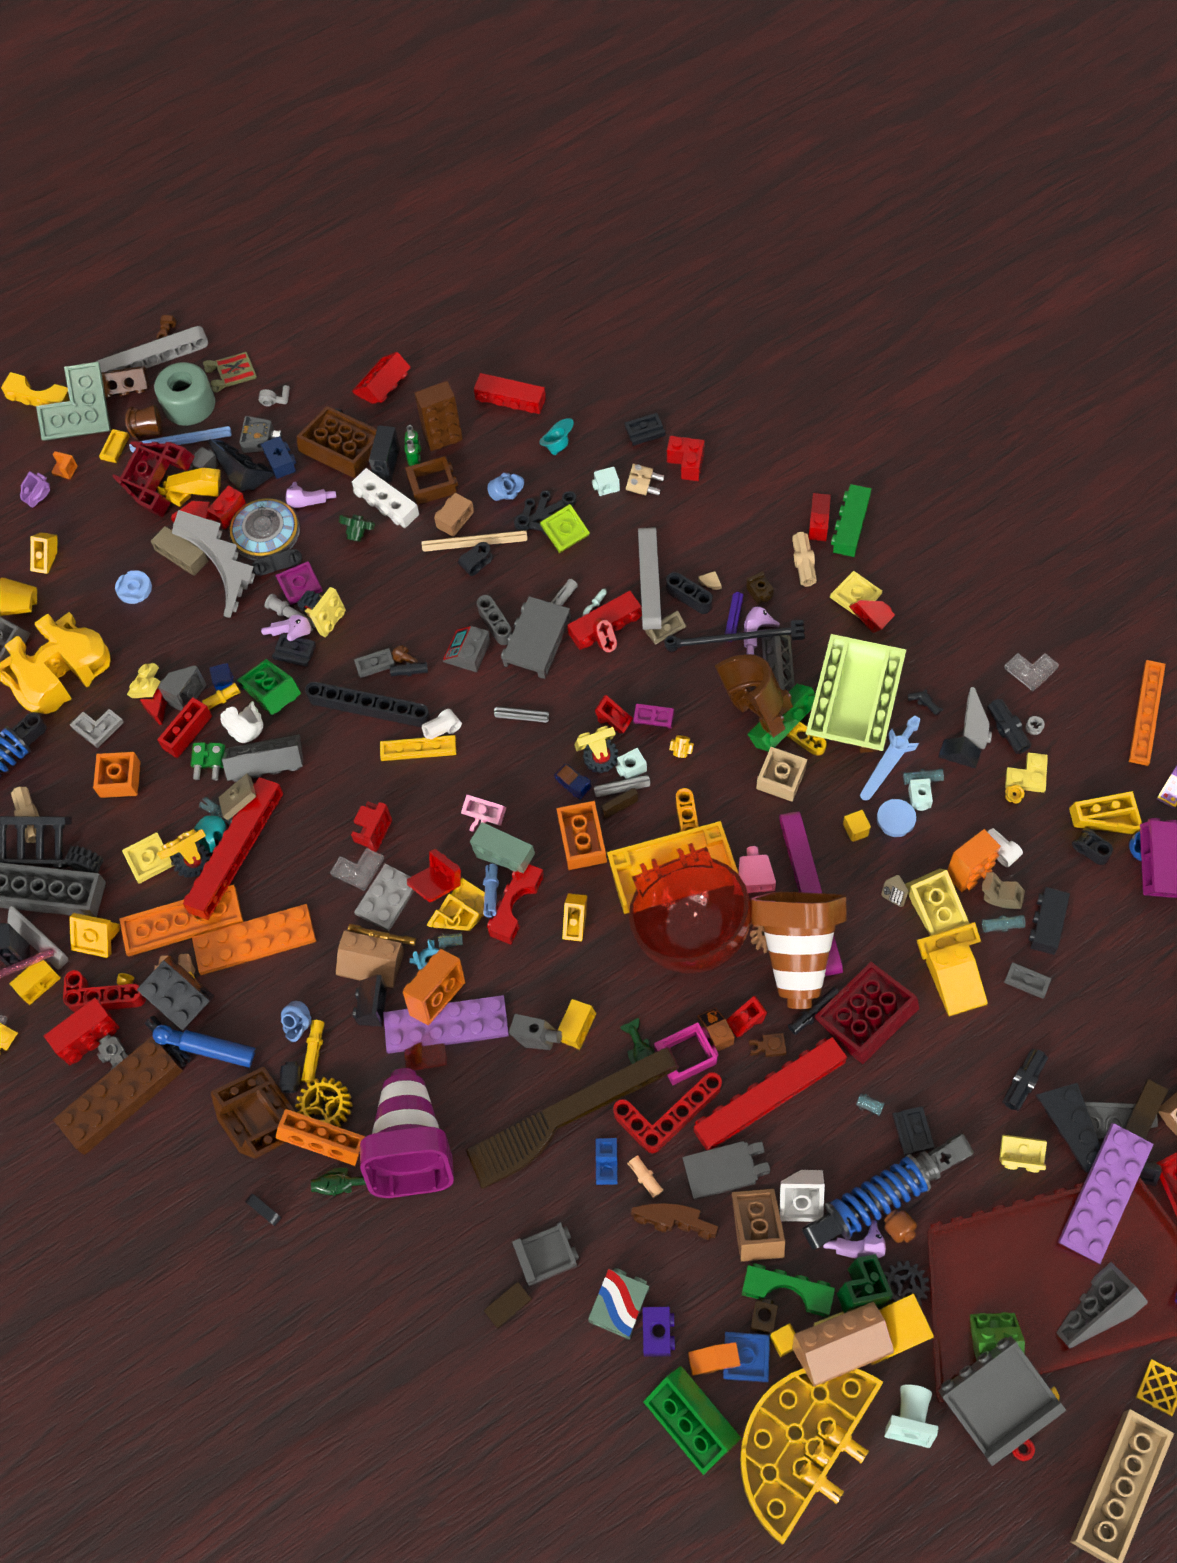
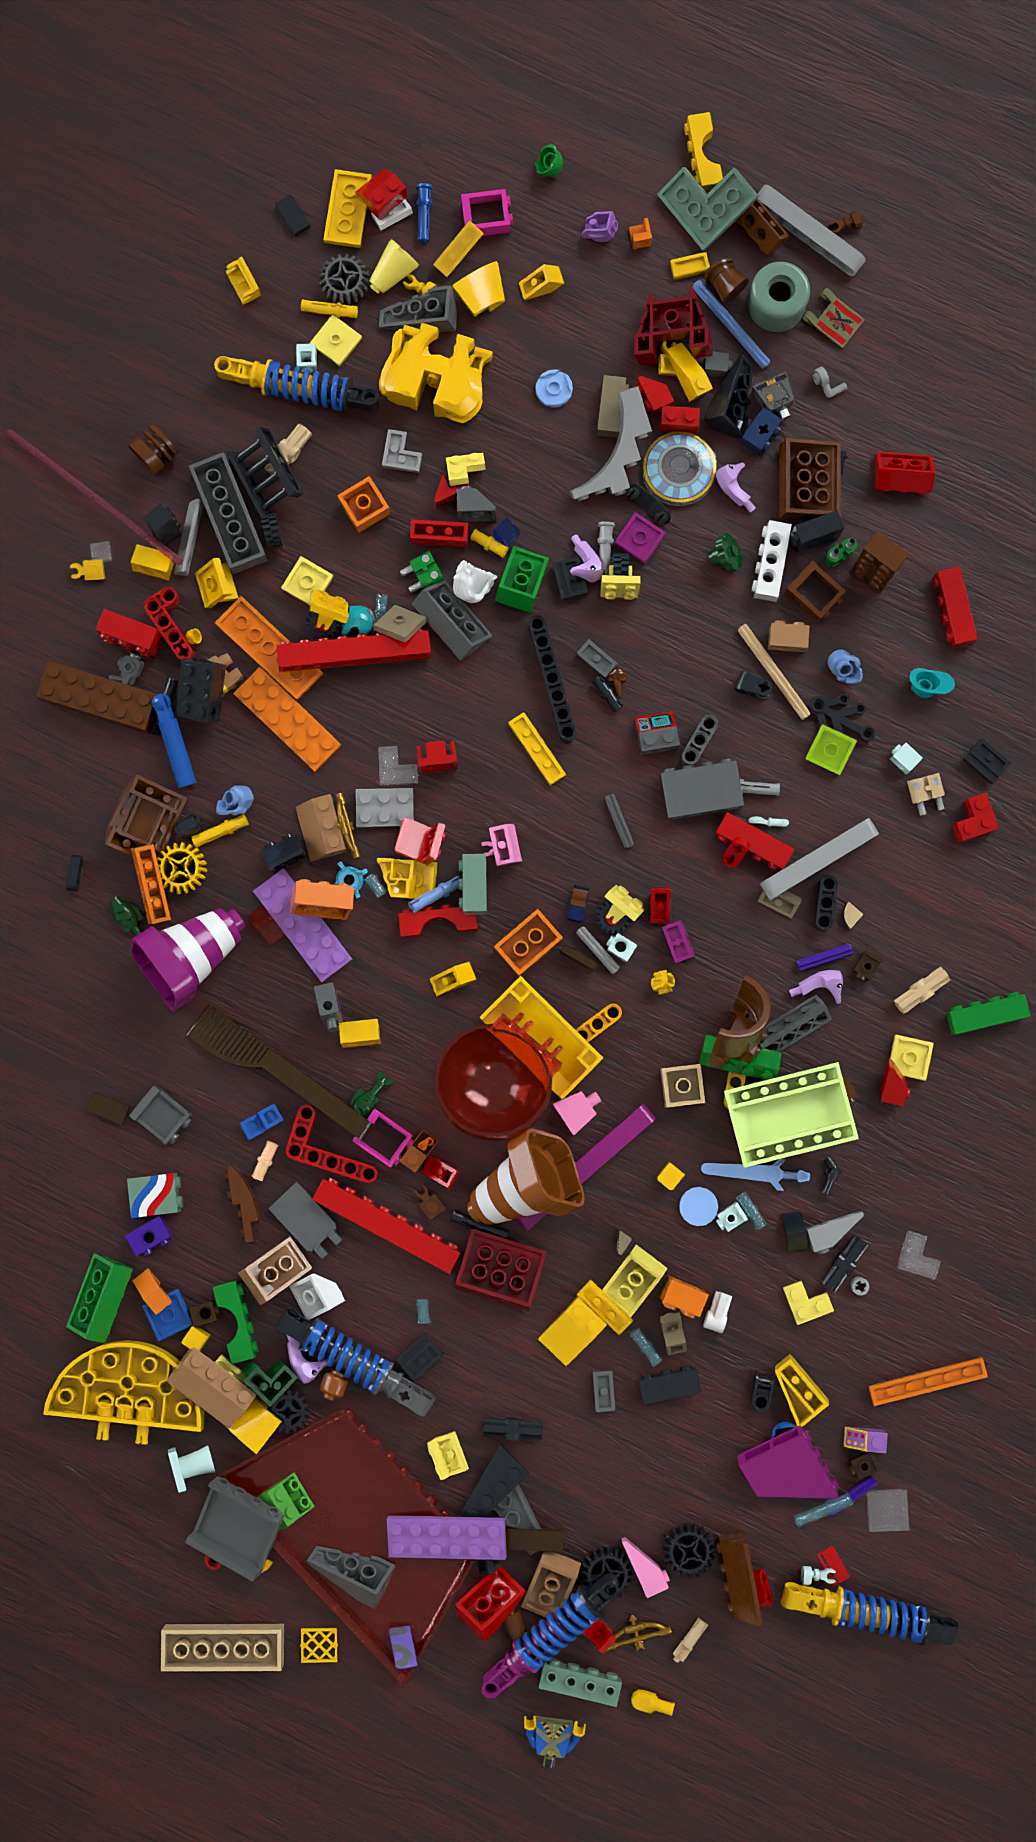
camera: 55 degrees right, 20 degrees up
(445, 722) = (572, 759): white piece -> none
(796, 631) = (831, 1023): black hinge -> none
(819, 517) = (979, 979): red slope -> none
(1009, 793) = (773, 1299): yellow plate -> none

